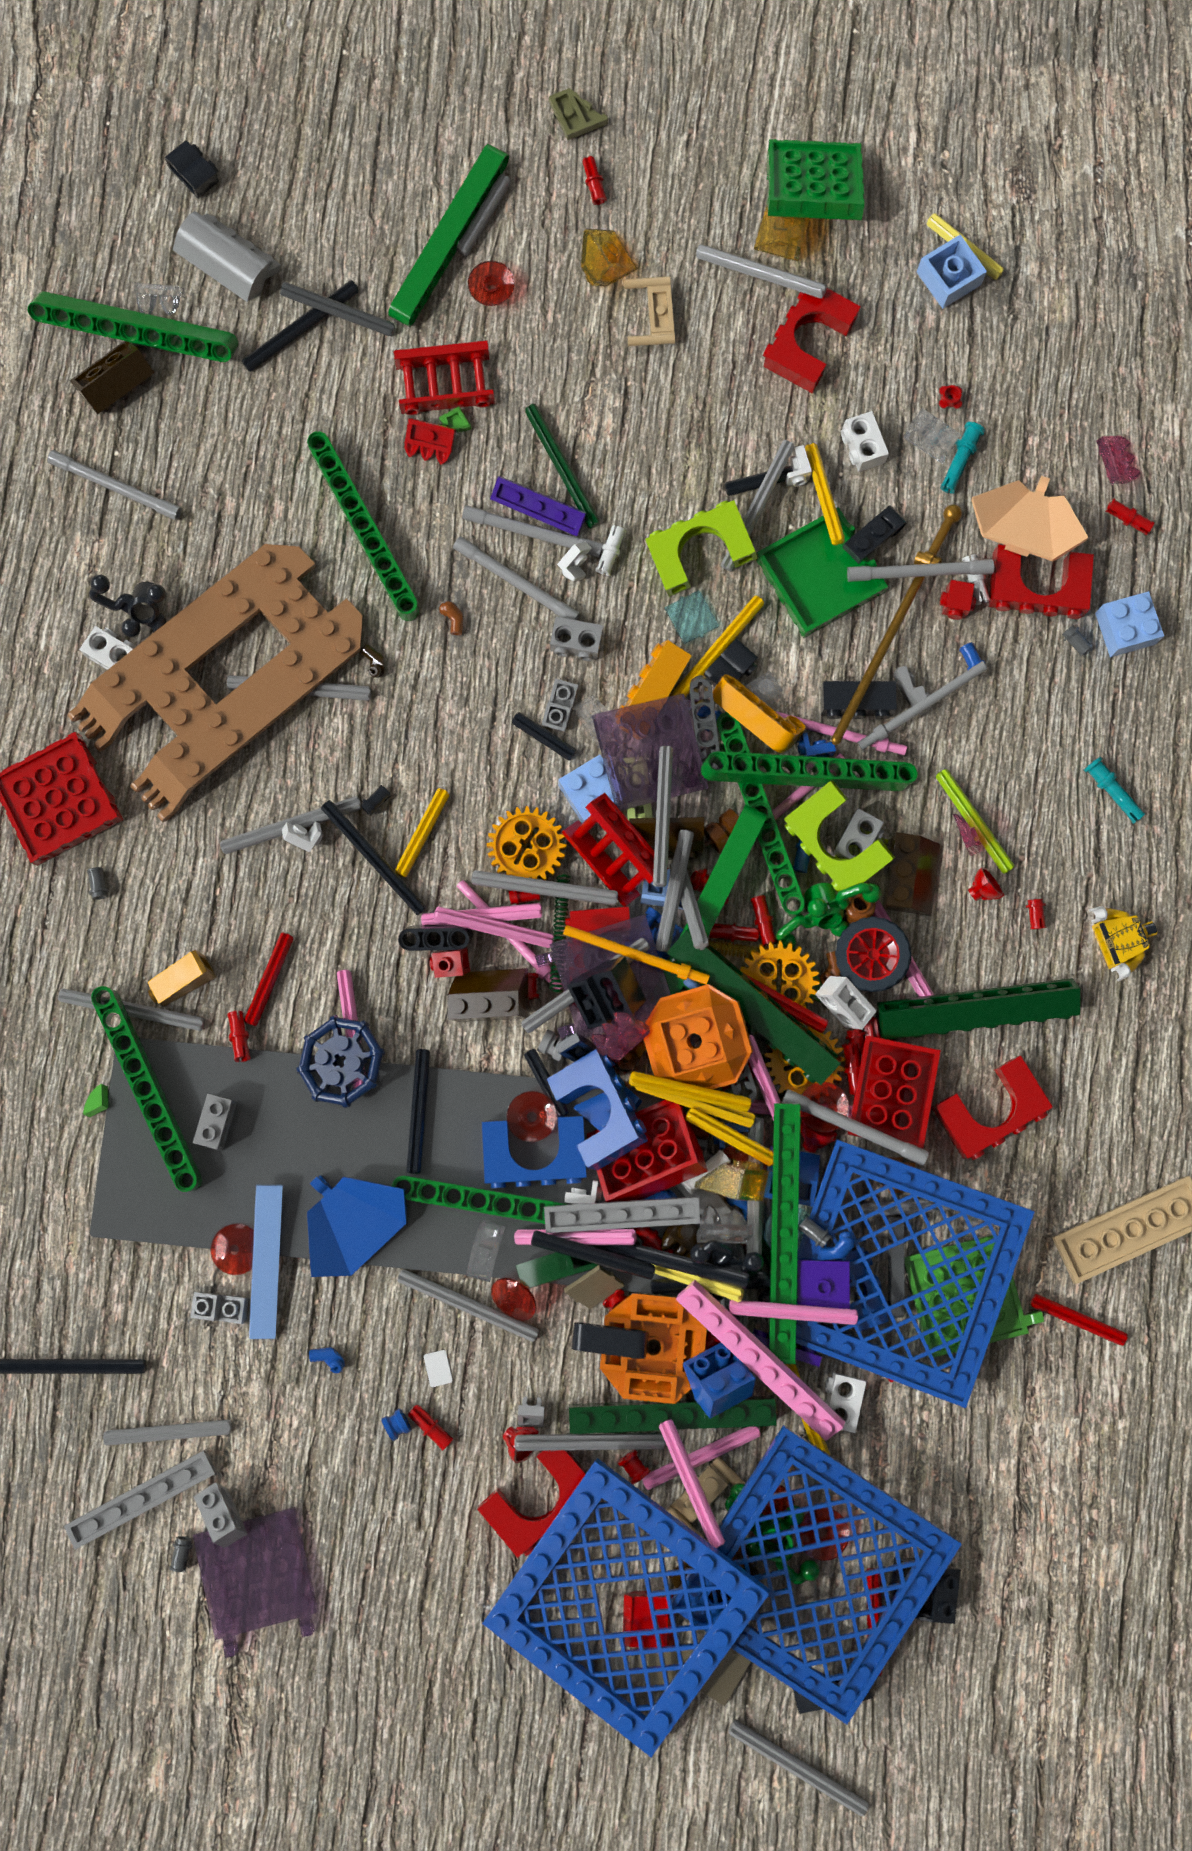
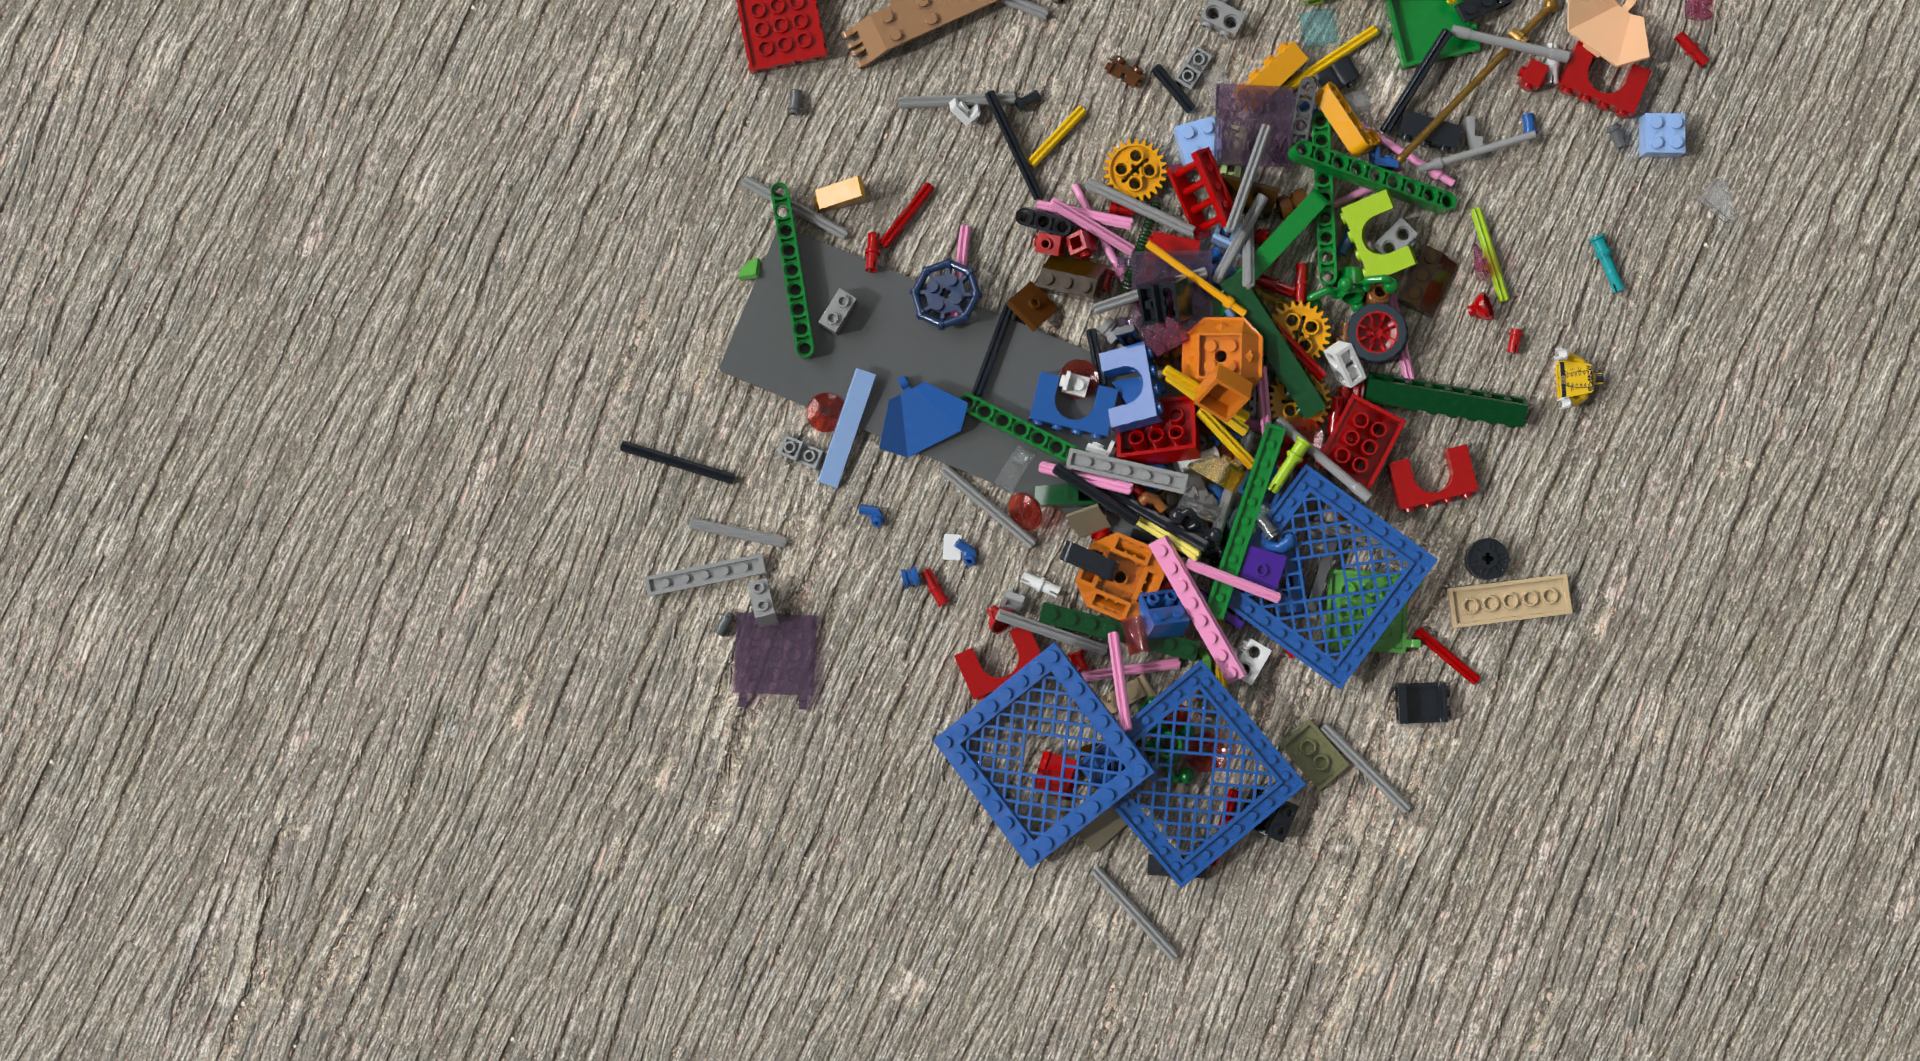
camera: 15 degrees right, 5 degrees up
(450, 1044) = (1032, 306): none -> reddish brown plate
(459, 1370) = (968, 552): none -> blue arm
(471, 729) = (1119, 66): none -> reddish brown hinge
(487, 952) = (1081, 244): none -> red brick
(527, 1125) = (1074, 384): none -> white bracket
(559, 1383) = (1040, 584): none -> white pin
(663, 1239) = (1154, 499): none -> dark orange arm
(692, 1418) = (1135, 635): none -> clear red hips
(710, 1087) = (1223, 393): none -> orange piece
(788, 1417) = (1203, 655): none -> bright green tile
(820, 1136) = (1294, 456): none -> lime pin
(825, 645) = (1416, 81): none -> black axle
(957, 1495) = (1314, 754): none -> olive plate
(1025, 1491) = (1365, 767): none -> light grey axle
(1067, 1388) = (1422, 702): none -> black panel
(1083, 1201) = (1495, 551): none -> black wheel

